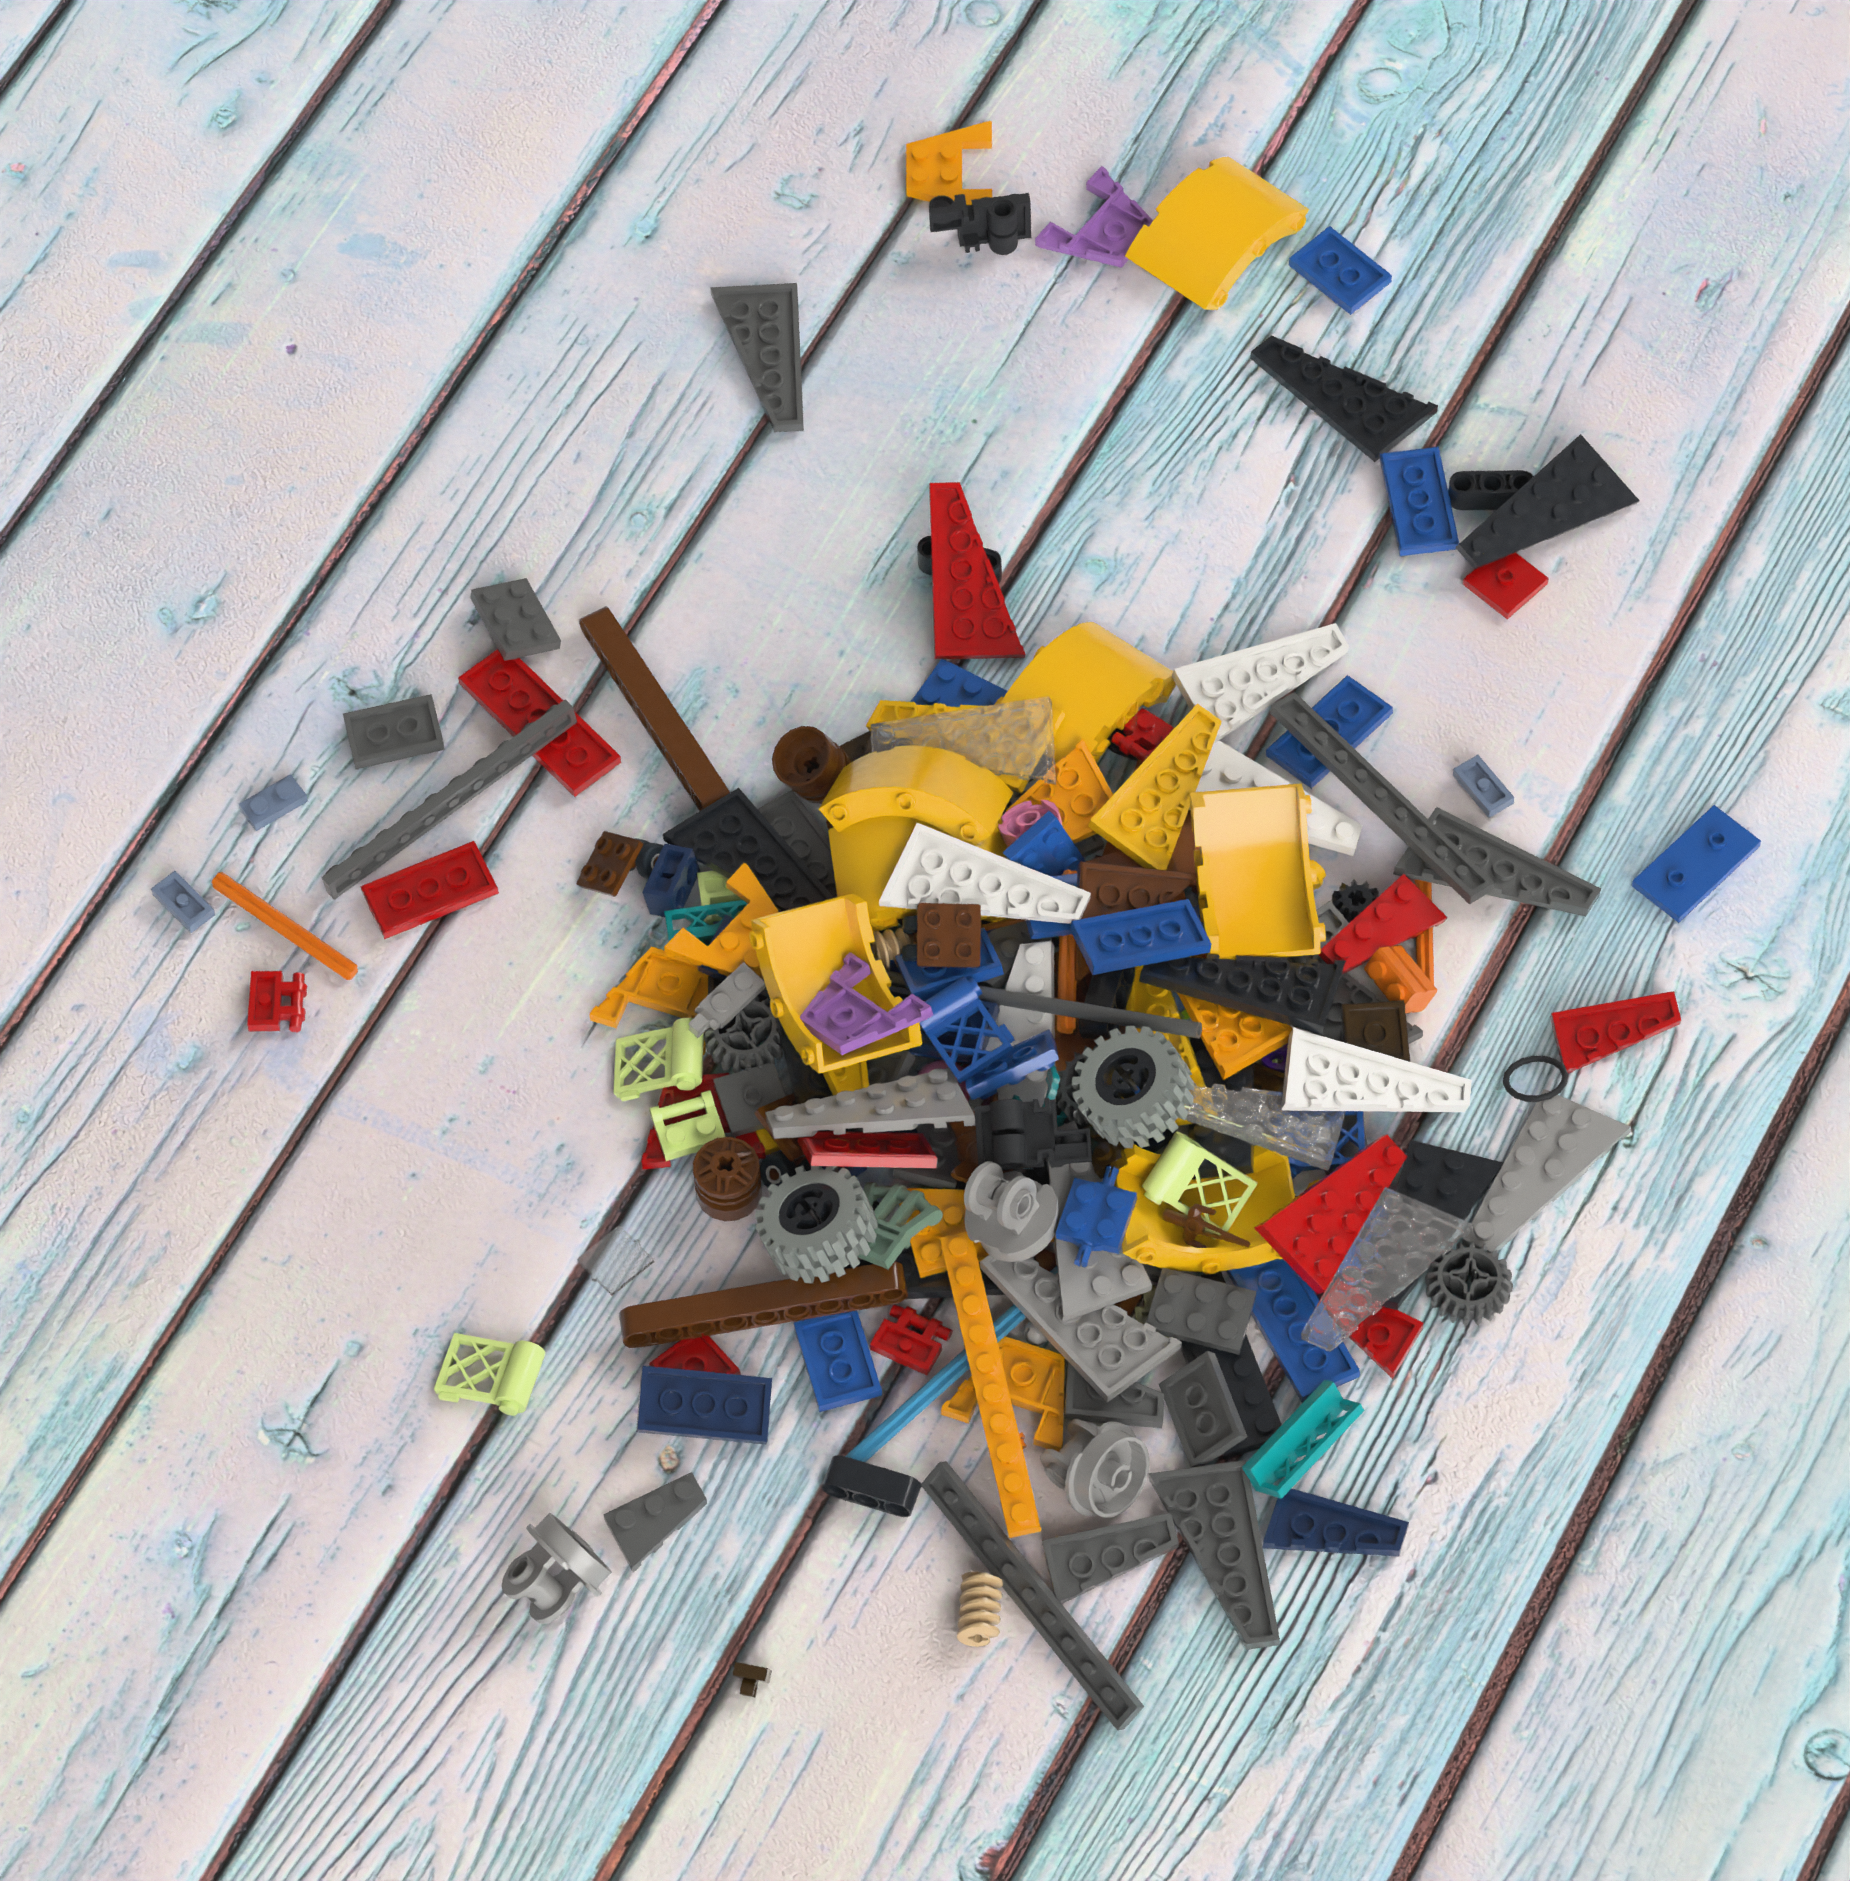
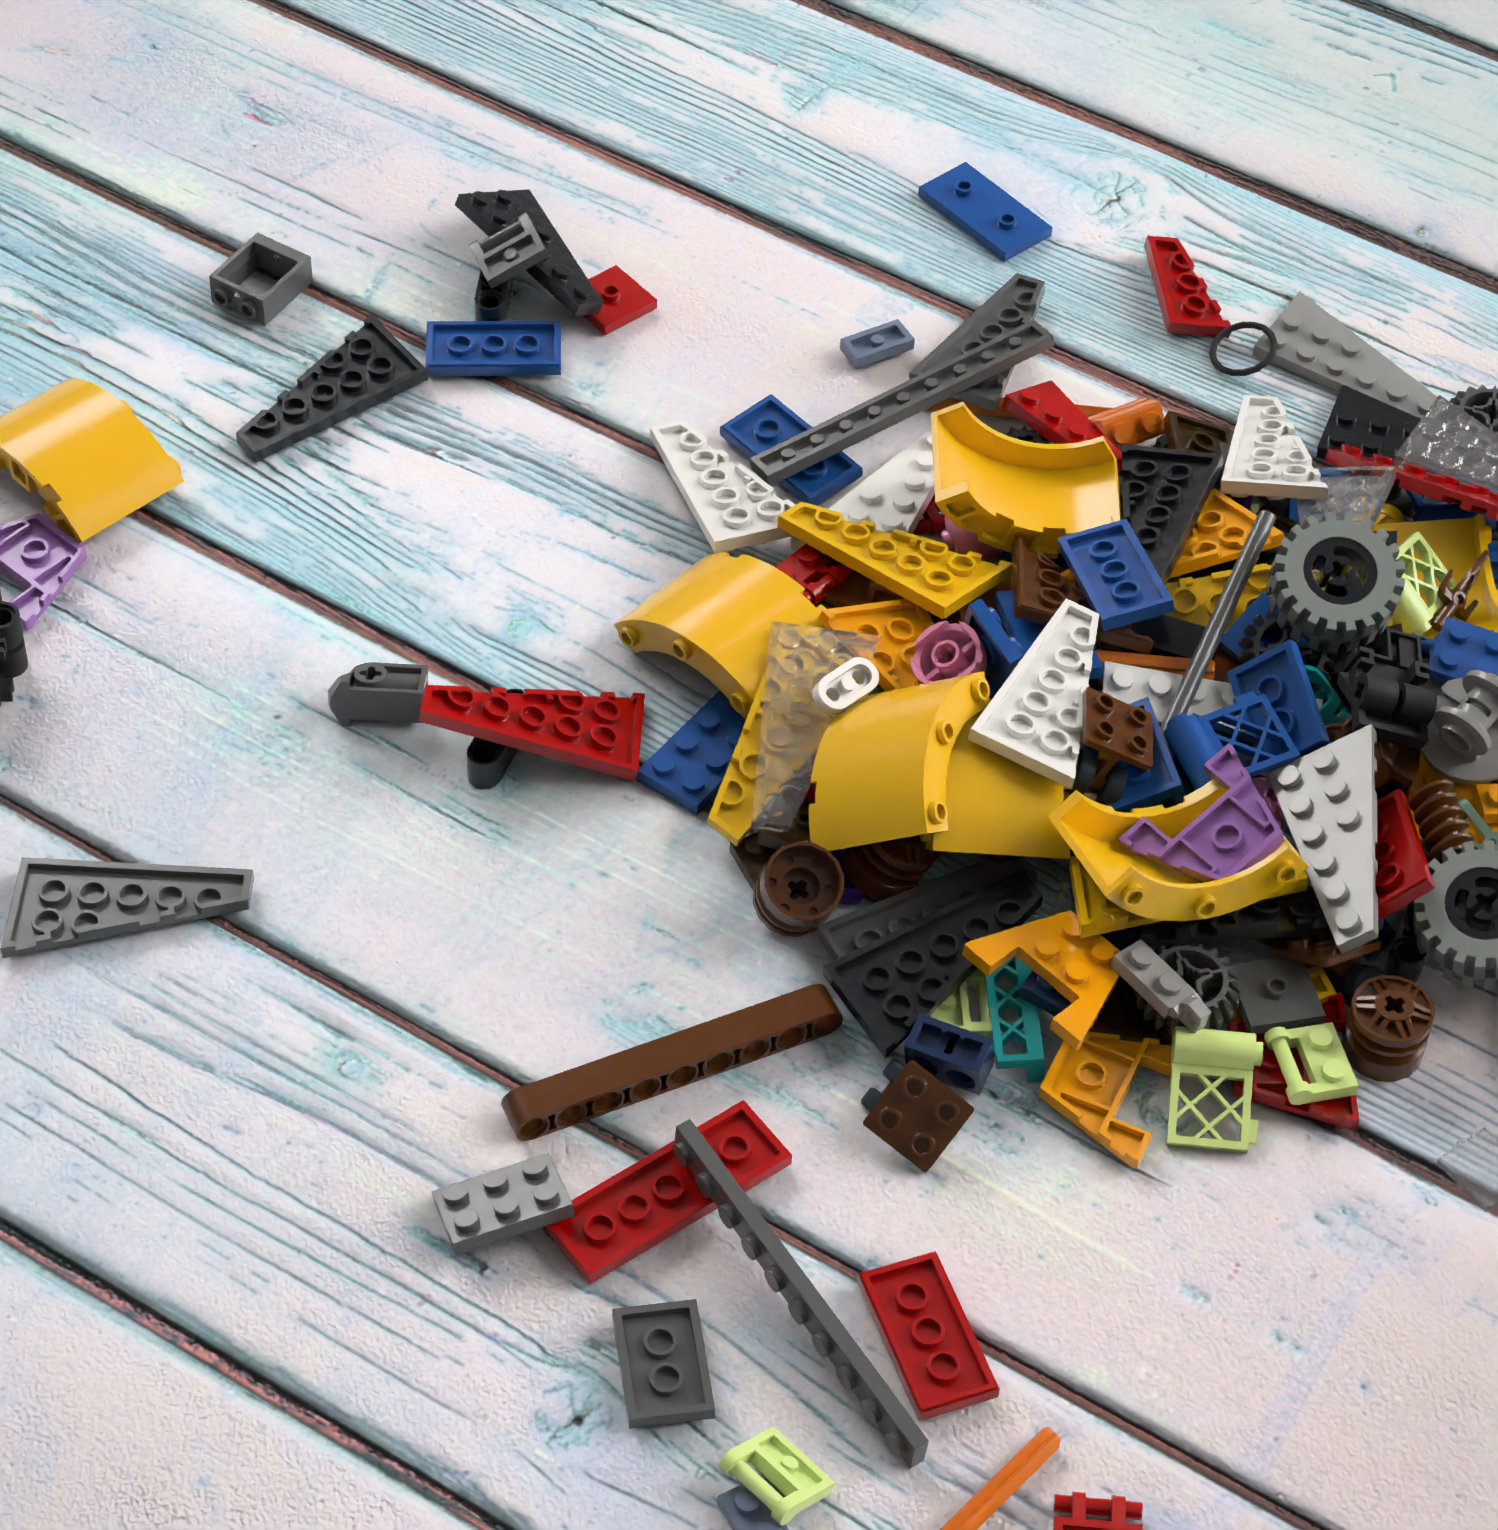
camera: 90 degrees left, 10 degrees down
(310, 811) = (782, 1466): none -> yellowish green plate
(898, 1186) = (1439, 819): none -> reddish brown piece
(989, 756) = (843, 687): none -> white plate
(994, 479) = (379, 693): none -> dark grey piece
(1340, 270) = (155, 371): blue plate -> none
(1477, 303) = (262, 253): none -> dark grey window
(1505, 486) = (509, 251): none -> dark grey plate

